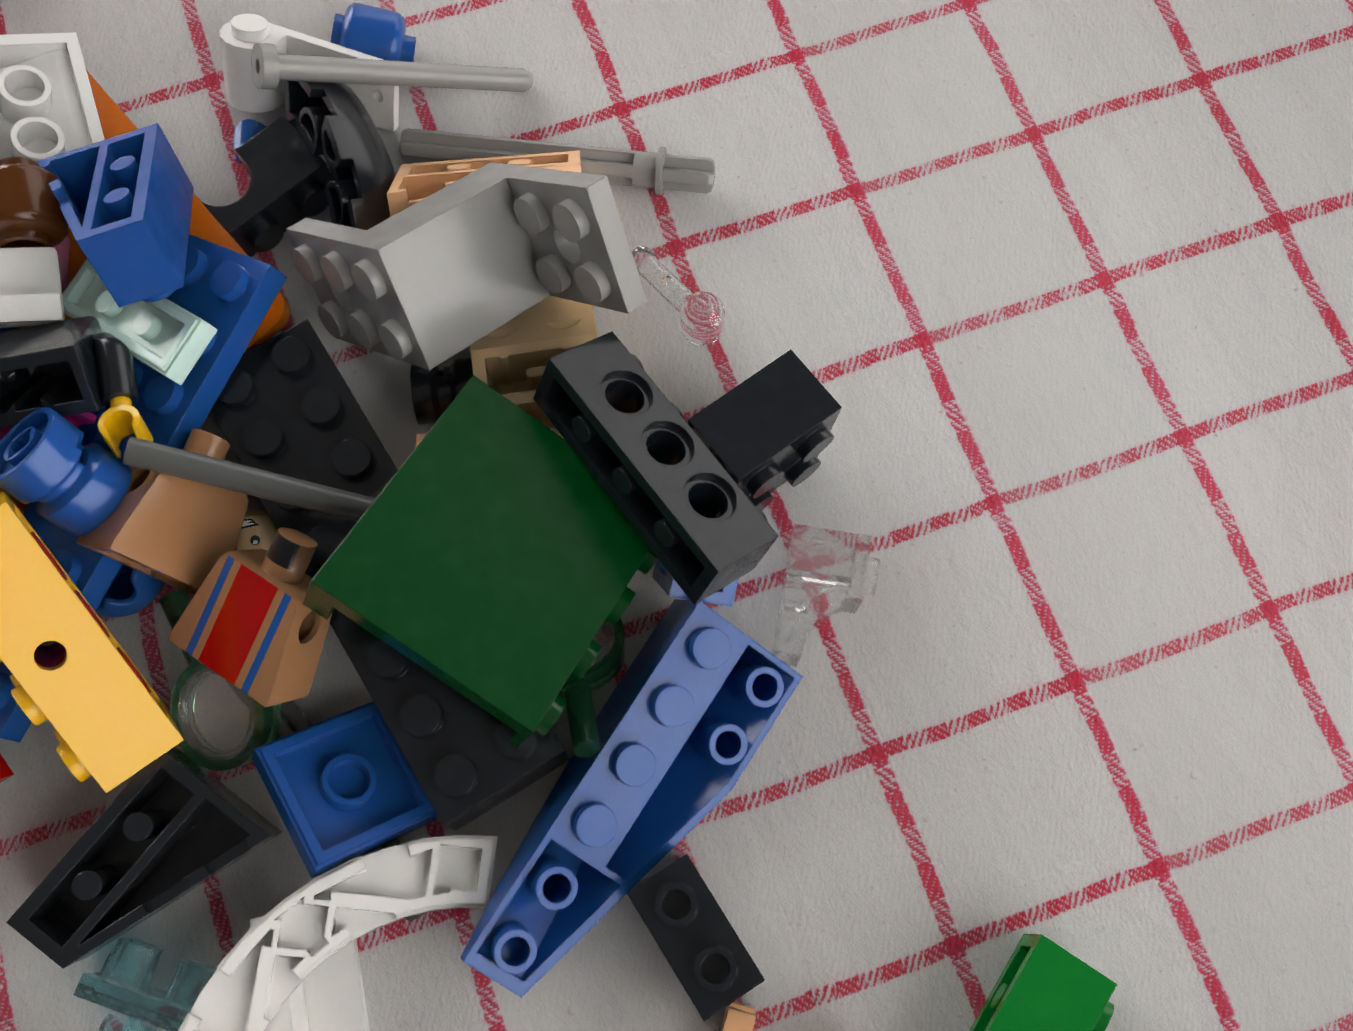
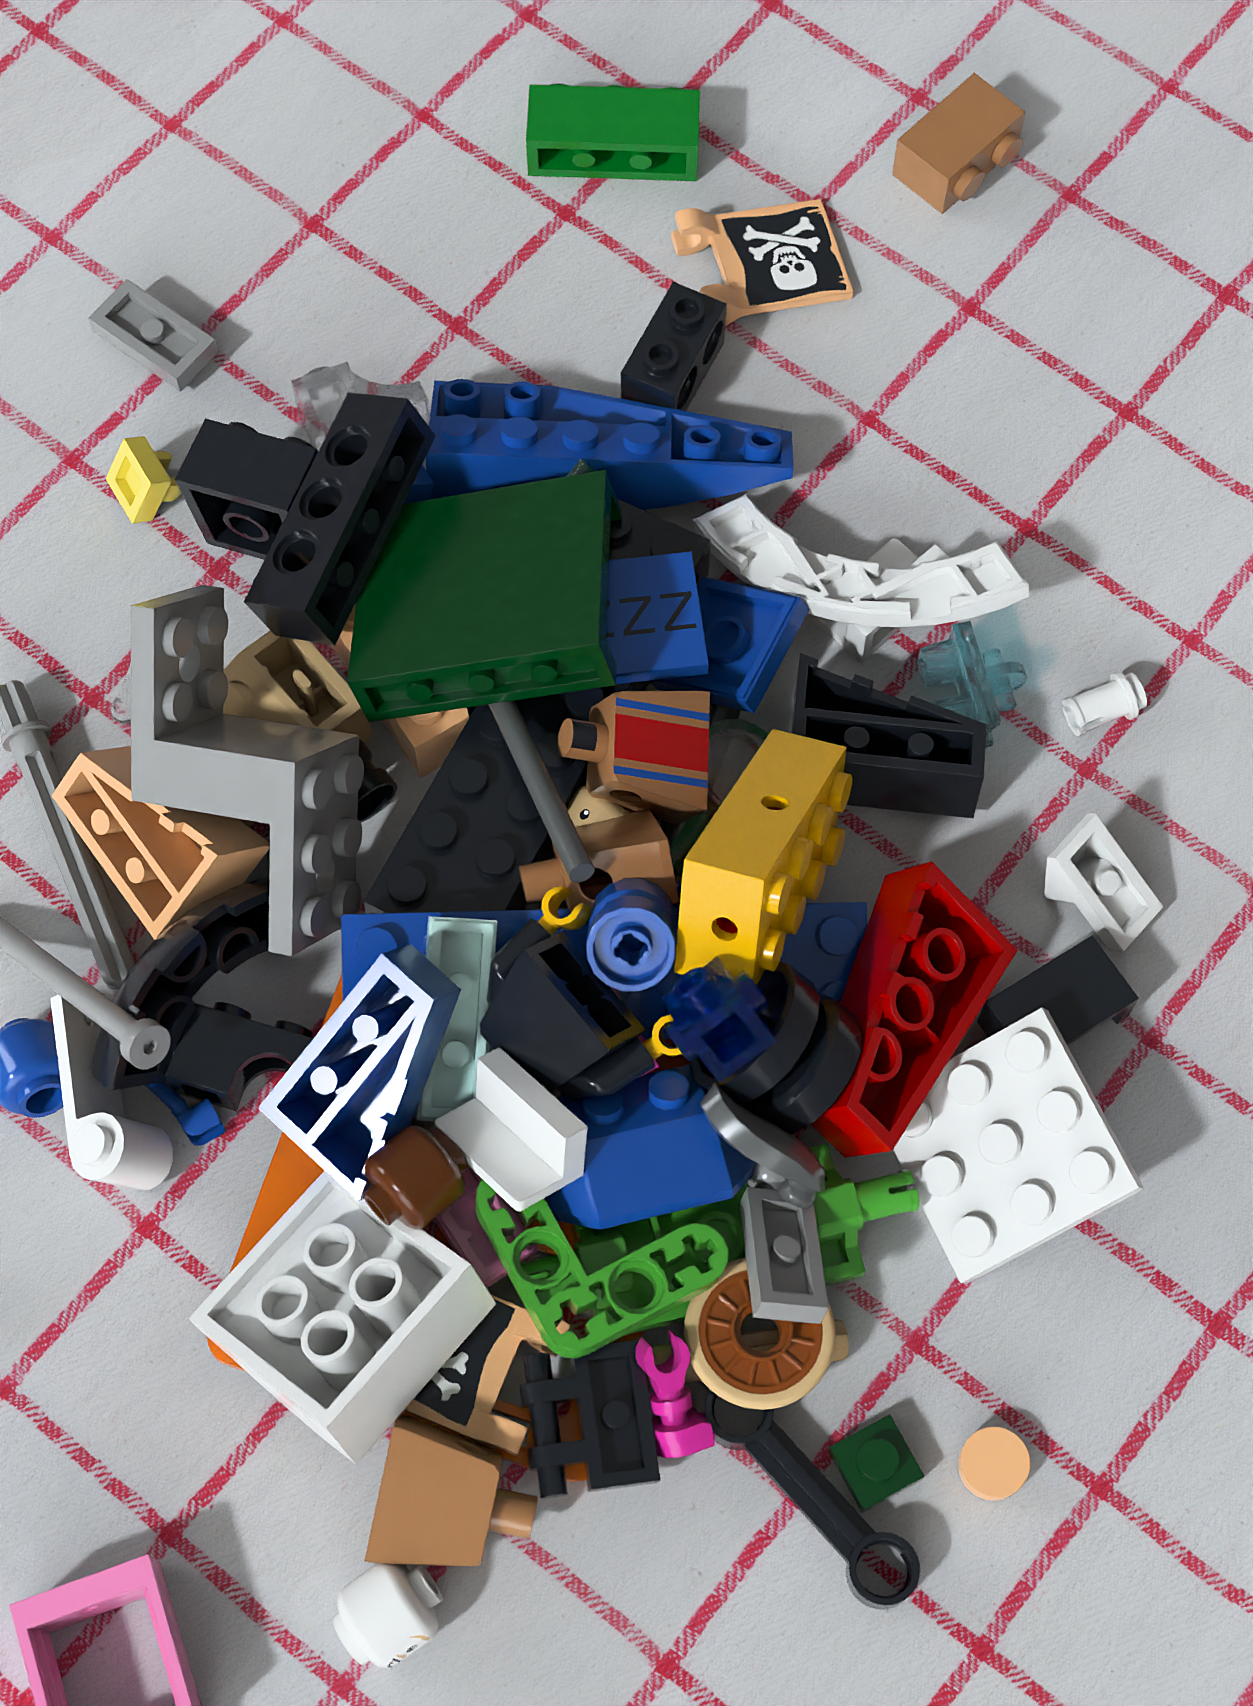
camera: 120 degrees left, 5 degrees down
(378, 703) = (655, 618): none -> blue tile
(858, 370) = (141, 479): none -> light yellow tile
(1011, 459) = (153, 335): none -> light grey plate

